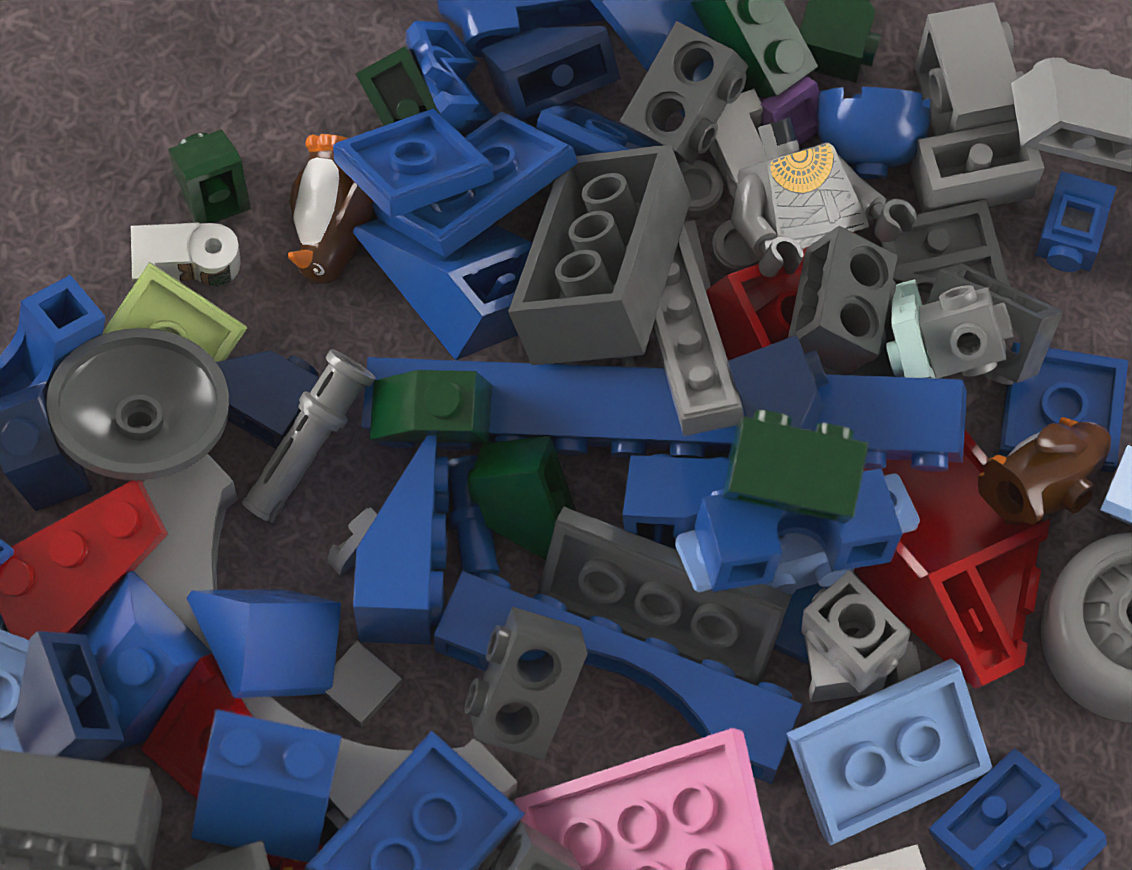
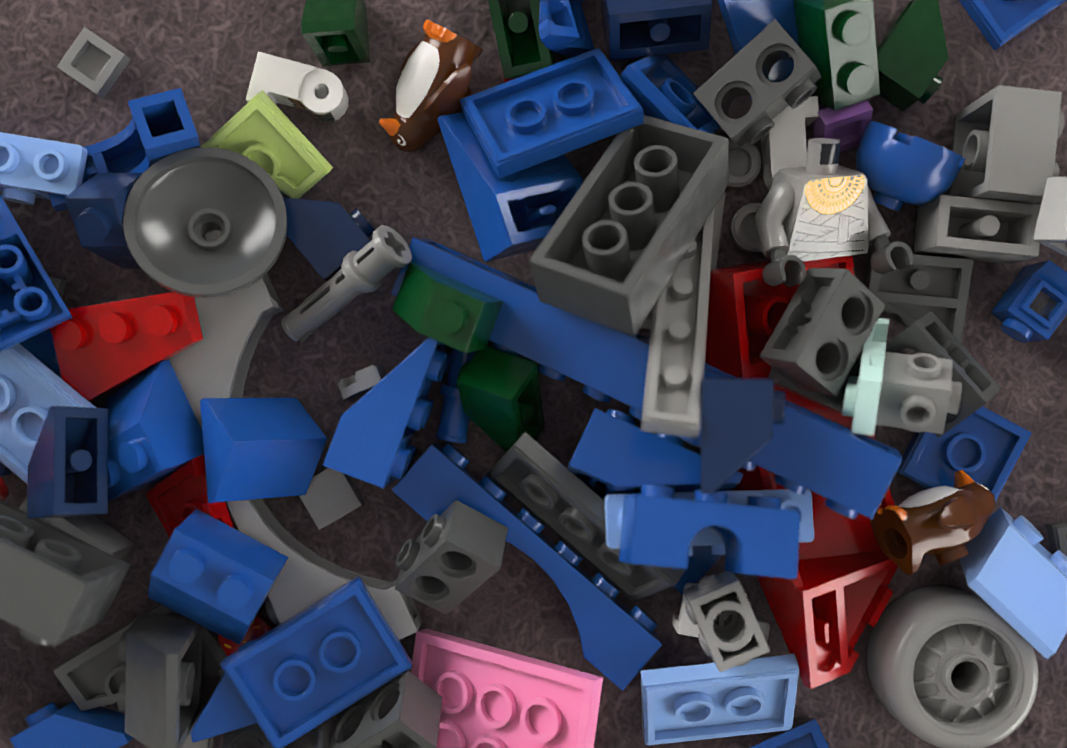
camera: 20 degrees right, 20 degrees up
(412, 163) = (501, 80): blue tile -> none
(796, 467) = (726, 509): dark green brick -> none

